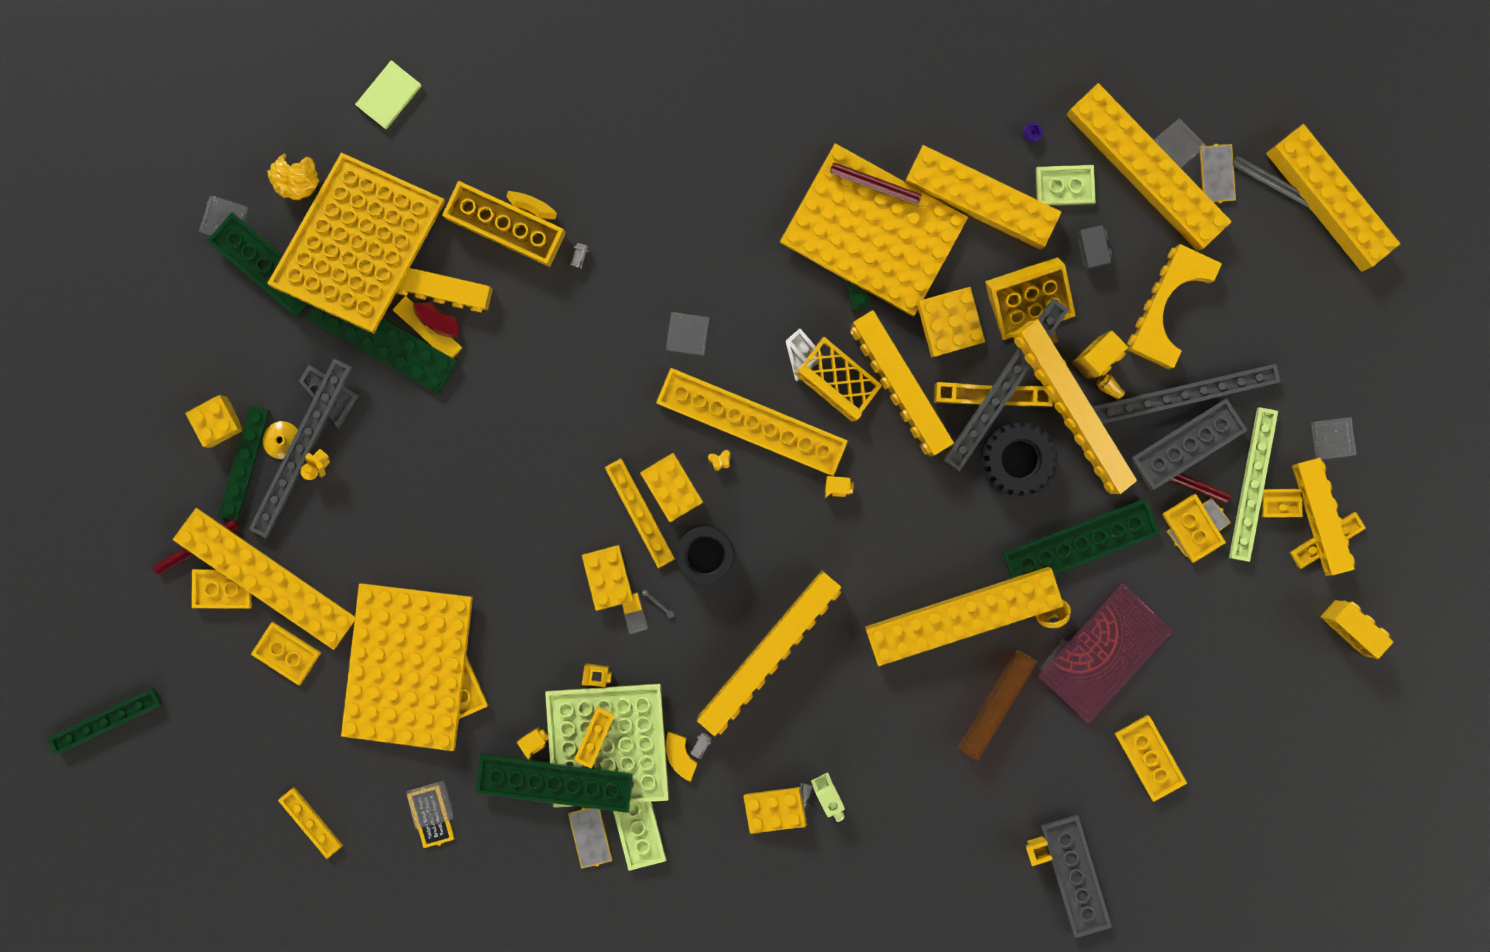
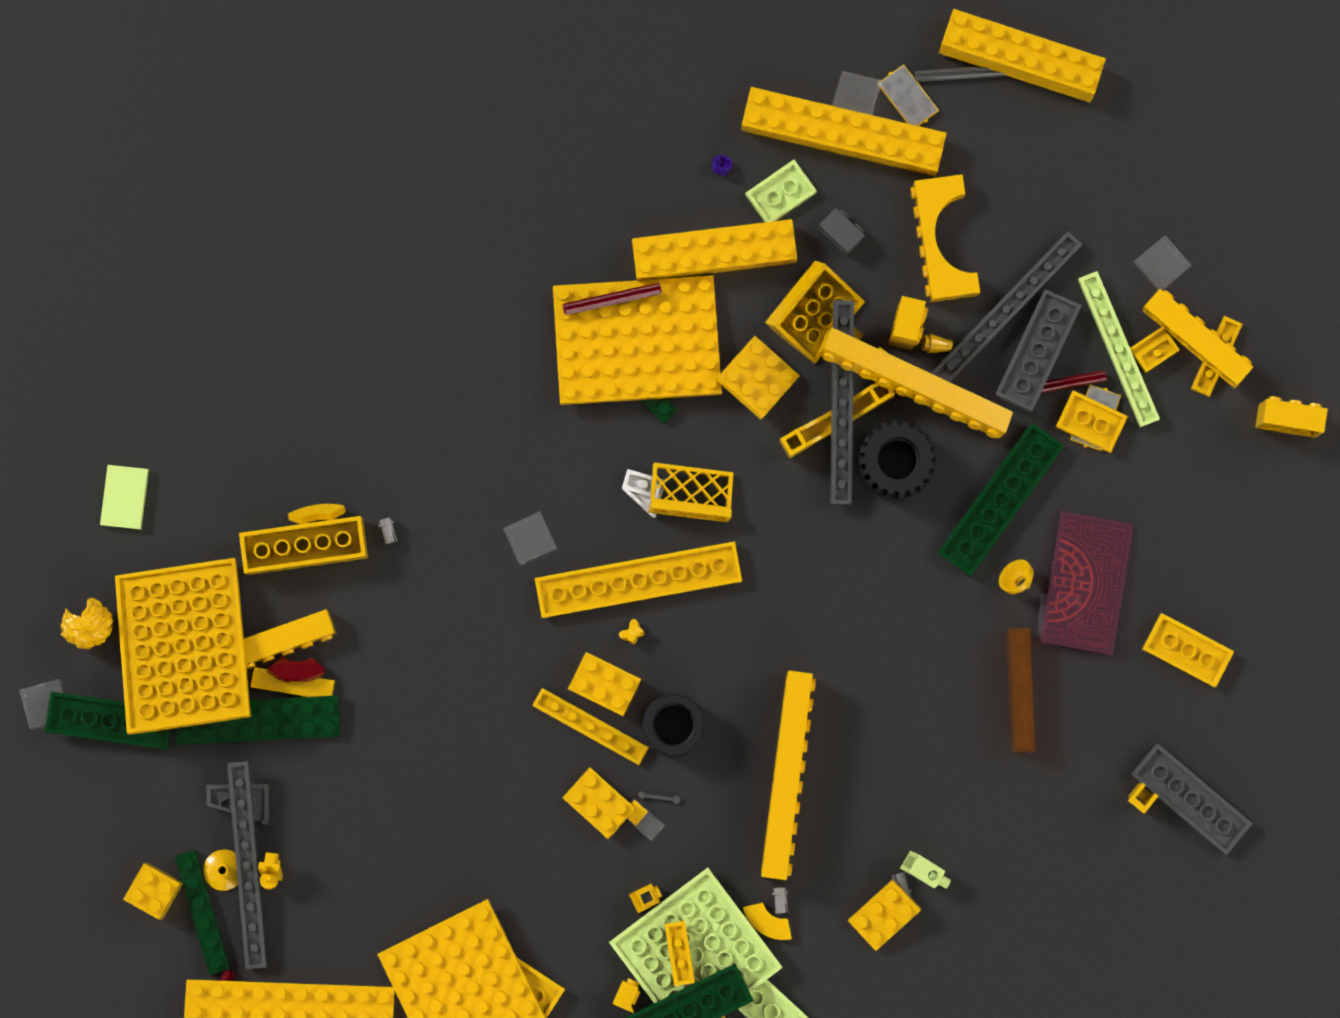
camera: 30 degrees left, 5 degrees down
(838, 486) = (752, 587): yellow window -> none
(901, 383) = (749, 460): yellow brick -> none
(964, 616) = (939, 630): yellow brick -> none

